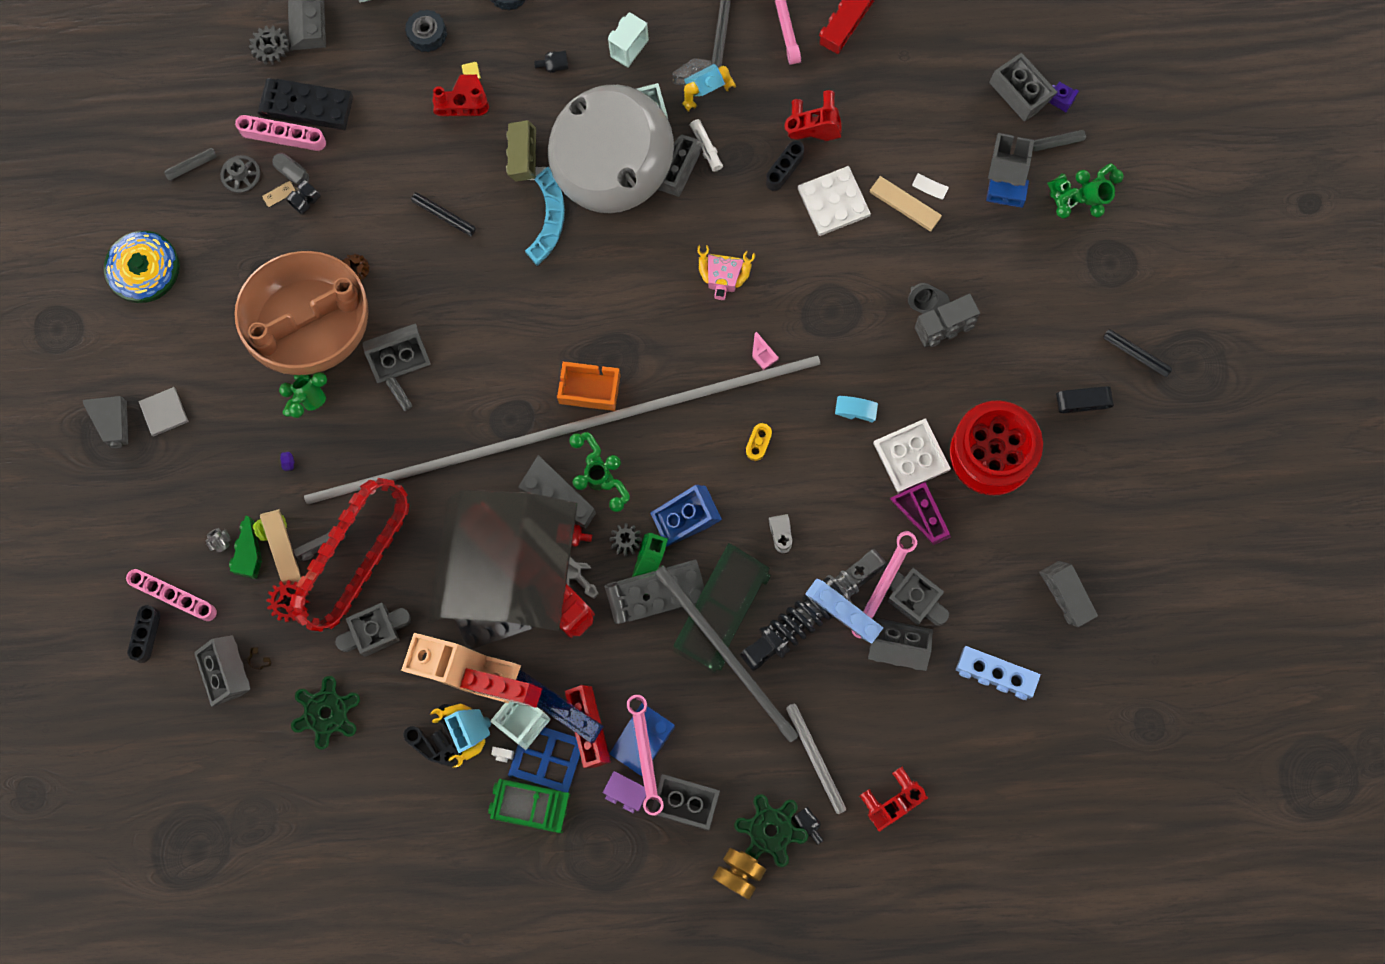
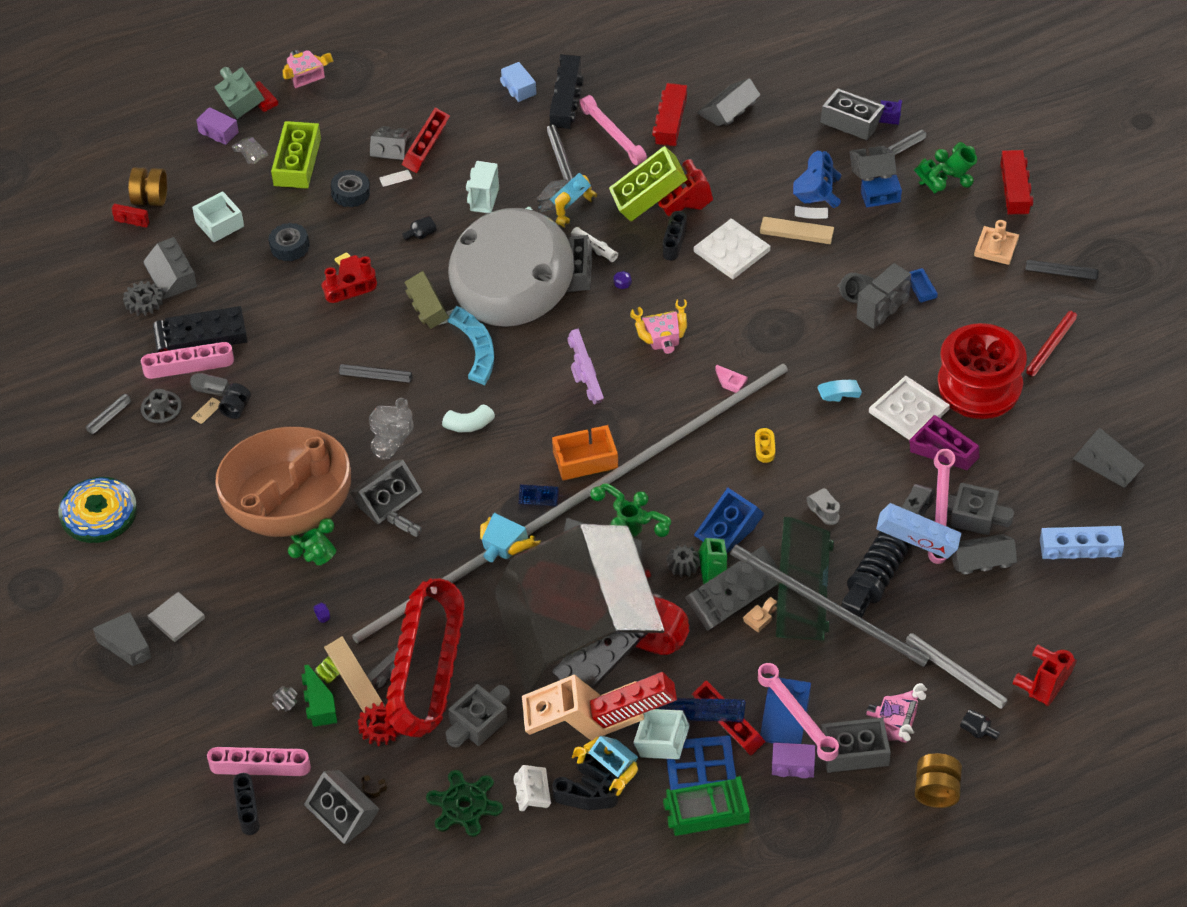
camera: 25 degrees left, 25 degrees down
(390, 721) = (532, 787): none -> white bracket
(428, 278) = (391, 428): none -> clear piece
(474, 452) = (504, 538): none -> medium azure torso
(501, 306) = (468, 422): none -> light aqua cylinder
(502, 754) = (657, 772): white plate -> none
(531, 410) = (538, 495): none -> clear blue slope
(628, 293) = (583, 368): none -> lavender plate
(667, 626) = (760, 617): none -> light nougat plate
(714, 197) = (622, 280): none -> dark purple tile
(738, 786) = (899, 713): none -> torso
(765, 816) = (948, 726): dark green plate -> none
(781, 101) = (647, 183): none -> lime brick
(911, 24) = (730, 102): none -> slope
(939, 157) = (811, 186): none -> blue piece
(993, 315) = (922, 285): none -> blue tile
(1083, 435) = (1051, 343): none -> red axle
(1084, 399) = (1037, 316): black beam -> none
(1088, 299) = (996, 243): none -> light nougat plate
(1144, 231) = (1015, 182): none -> red brick

